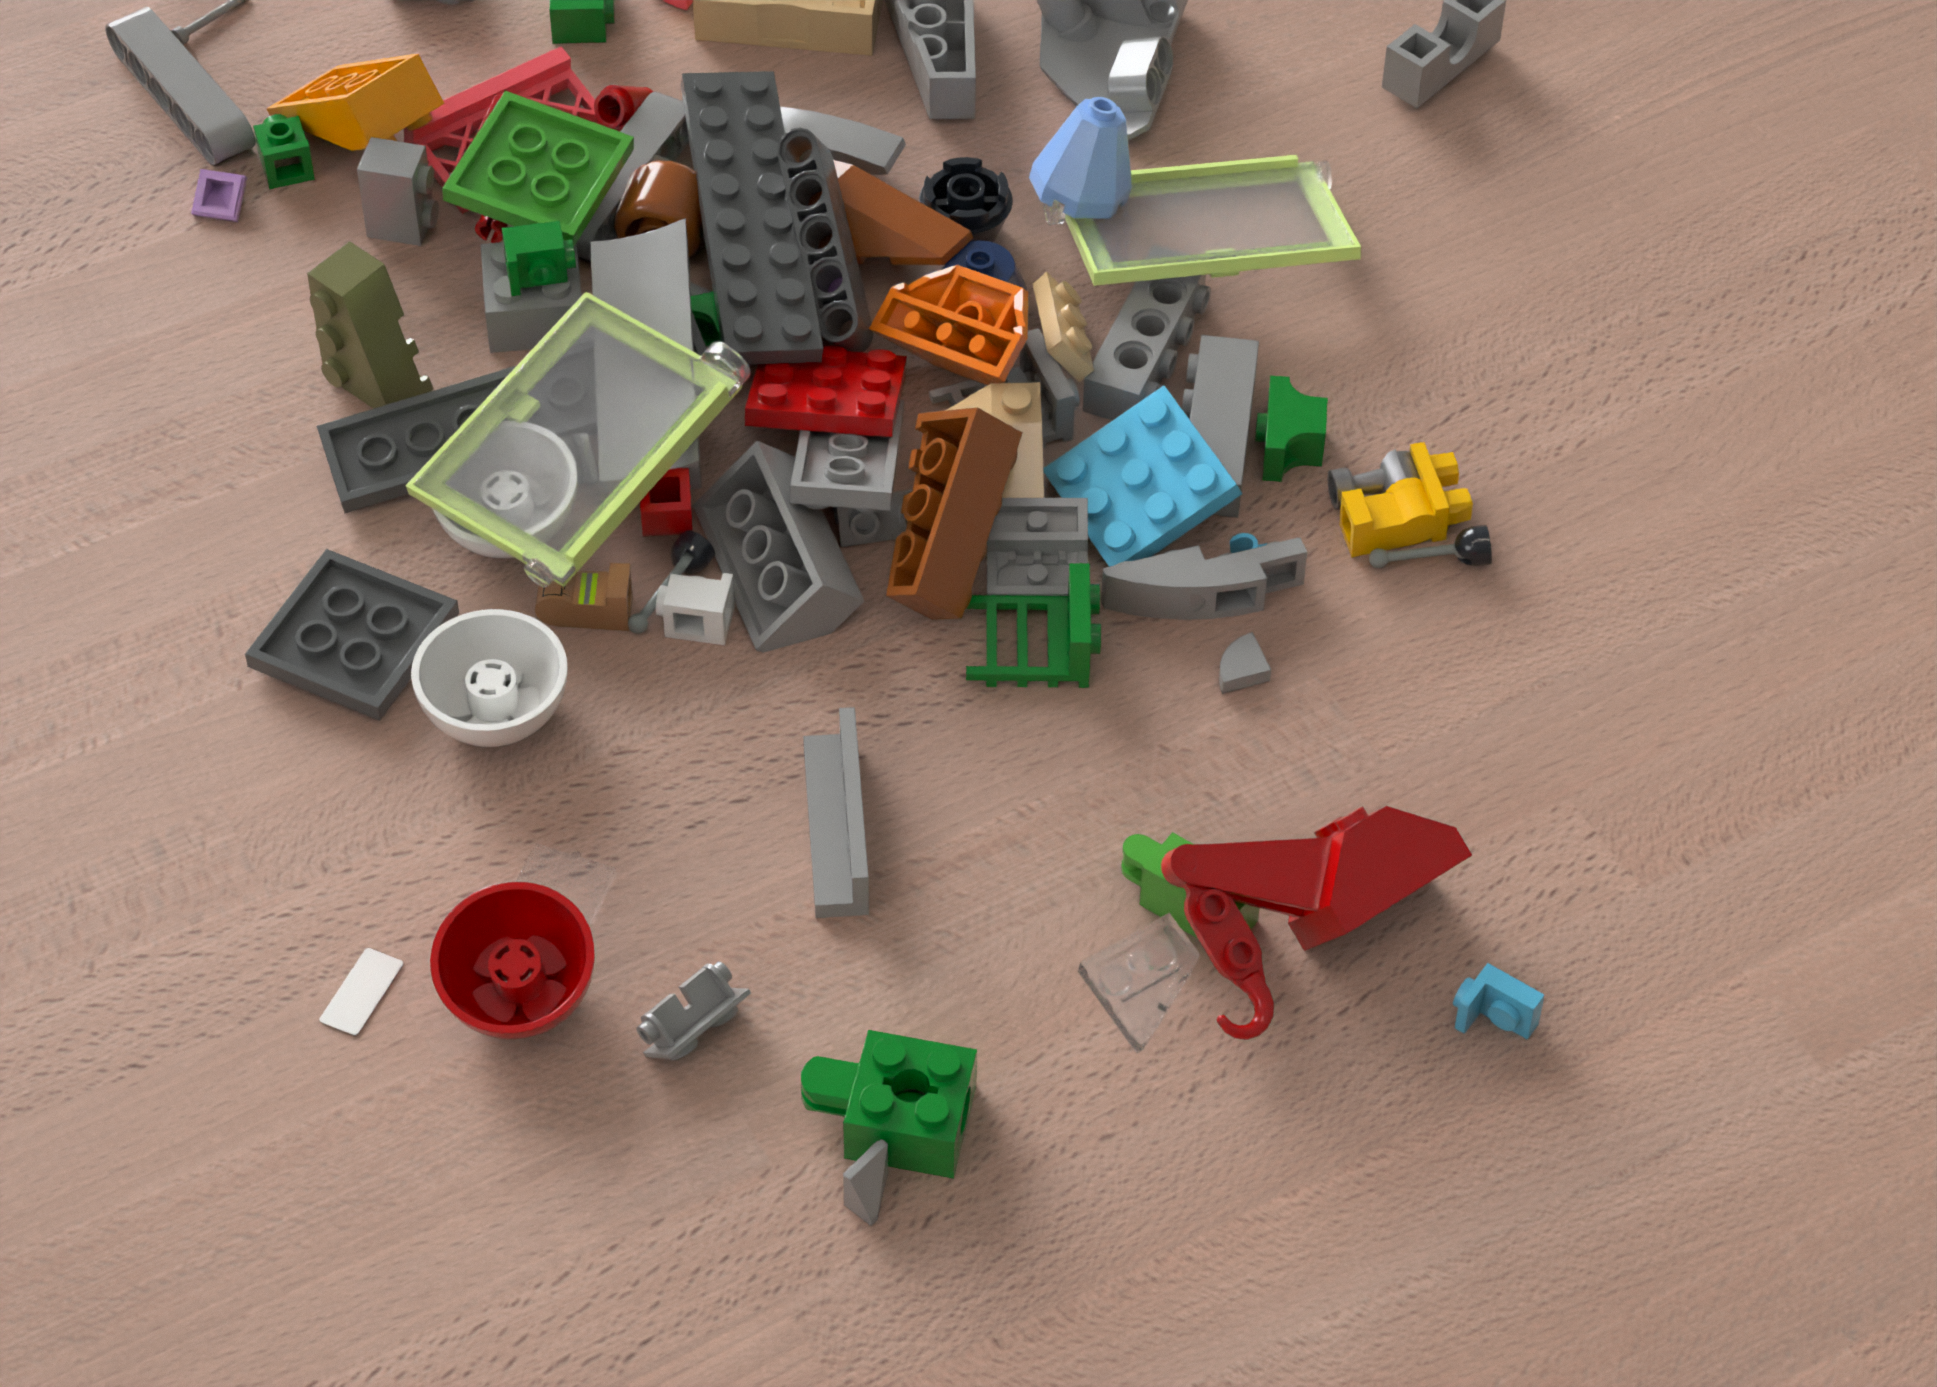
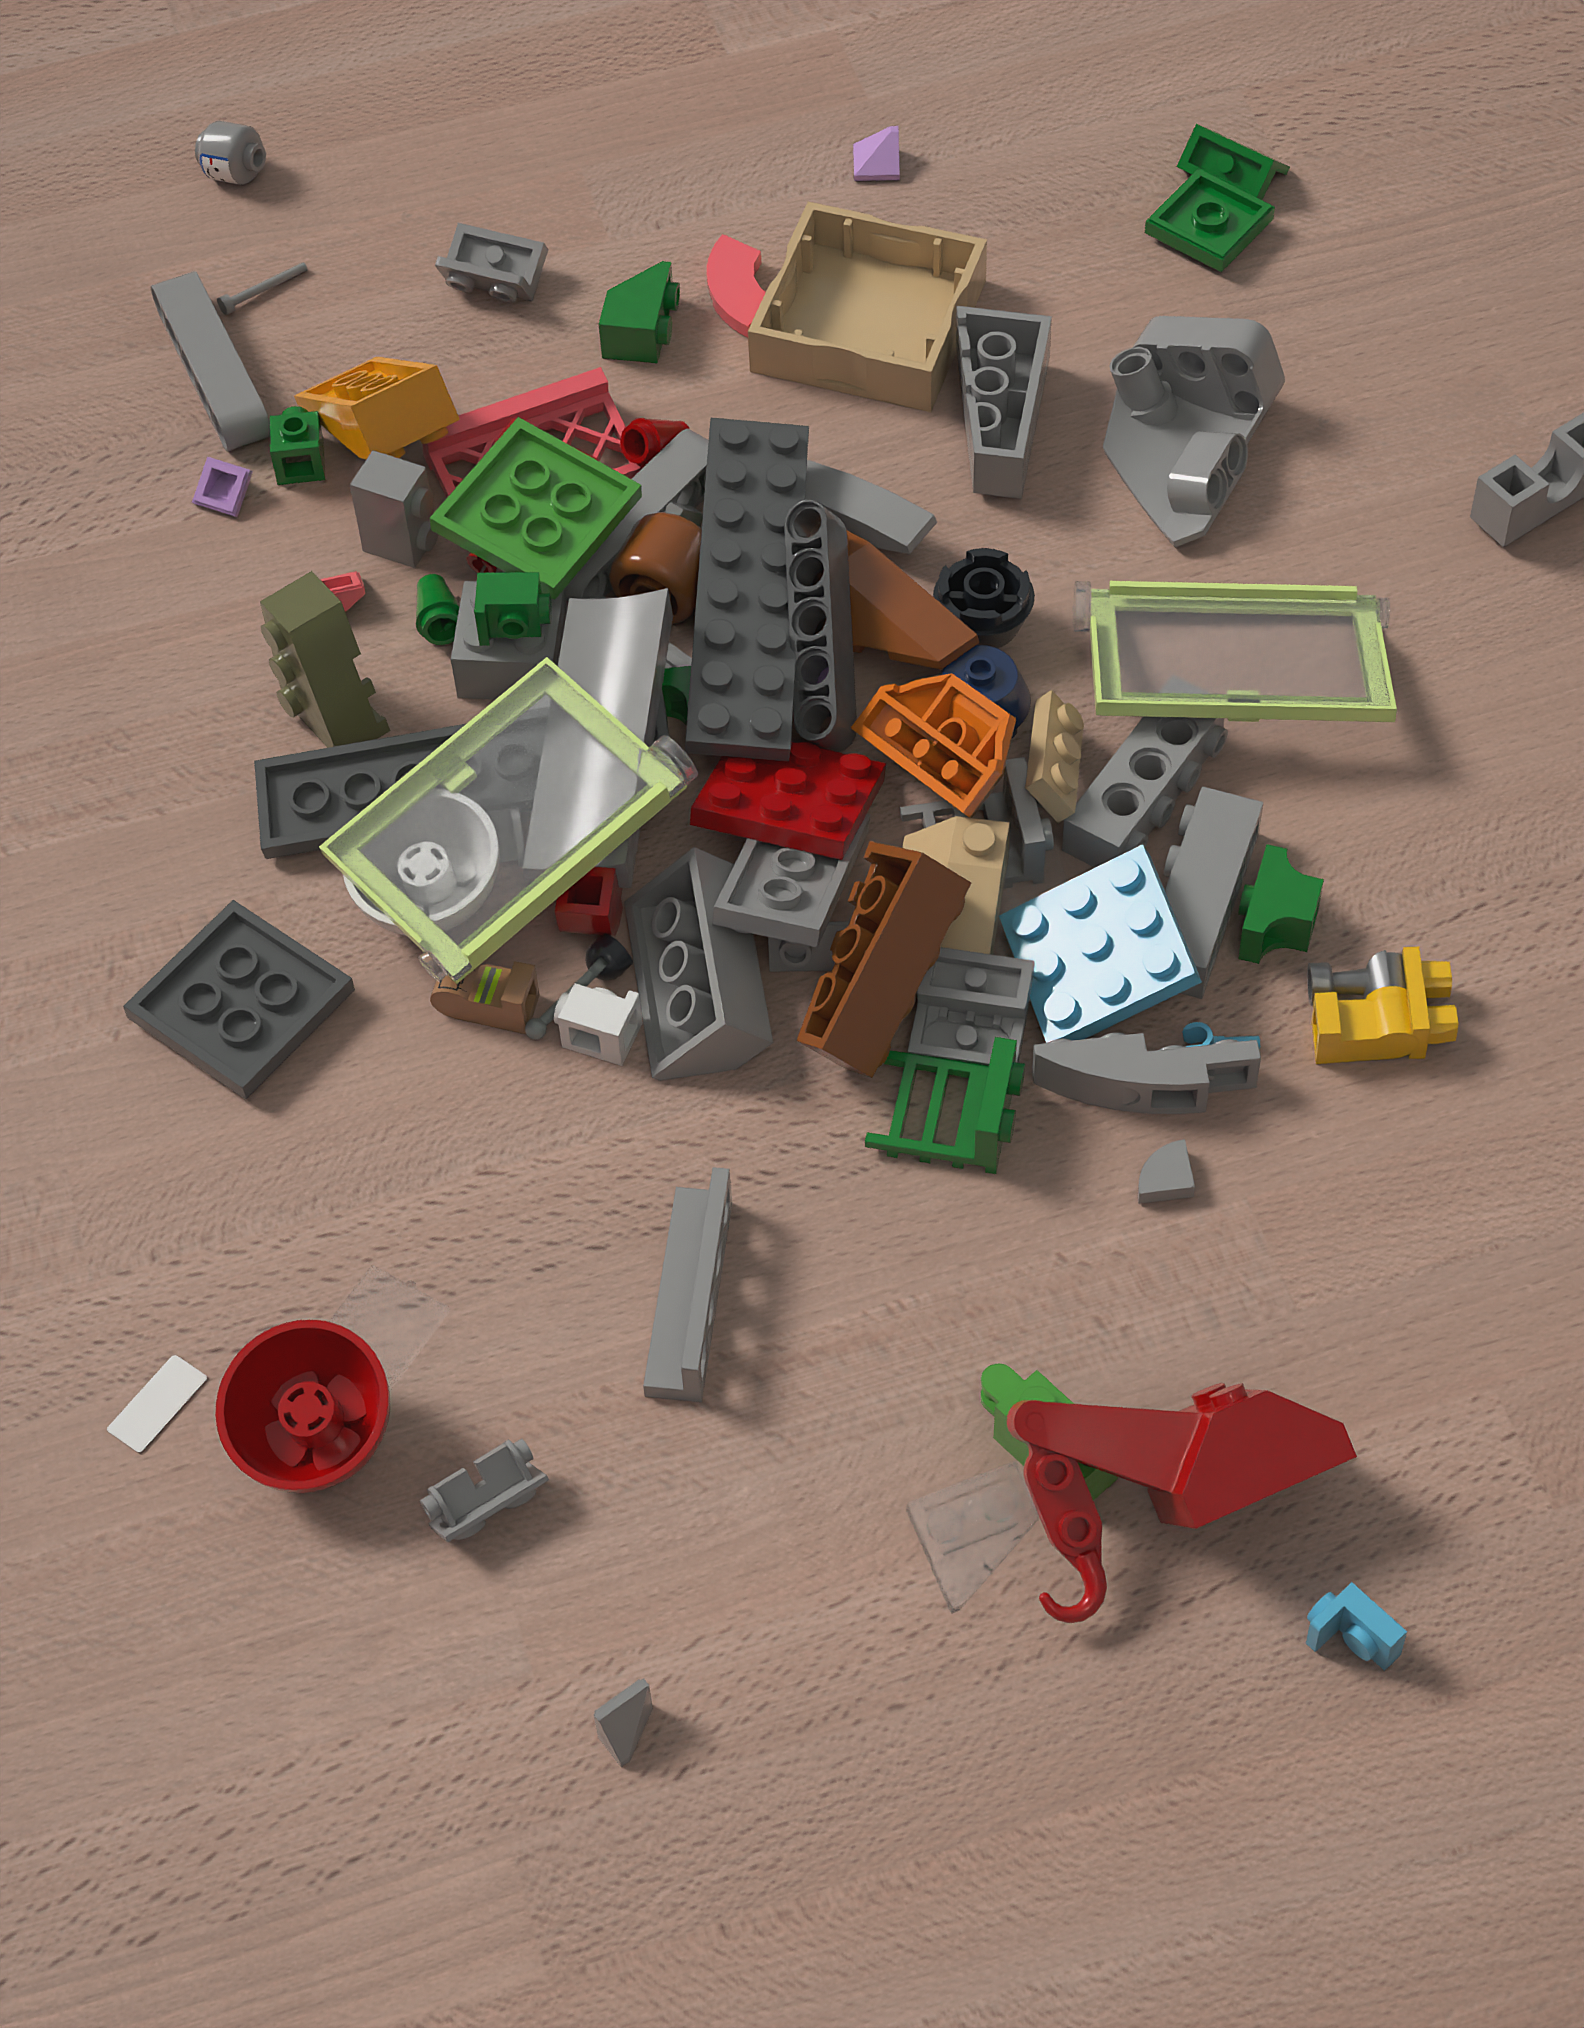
camera: 15 degrees right, 5 degrees up
(456, 278) = (436, 610): none -> green cone
(490, 676) = (358, 1073): white piece -> none
(920, 1129) = (682, 1660): green brick -> none
(1086, 162) = (1117, 574): light blue cone -> none
(1470, 546) = (1447, 1072): hinge -> none

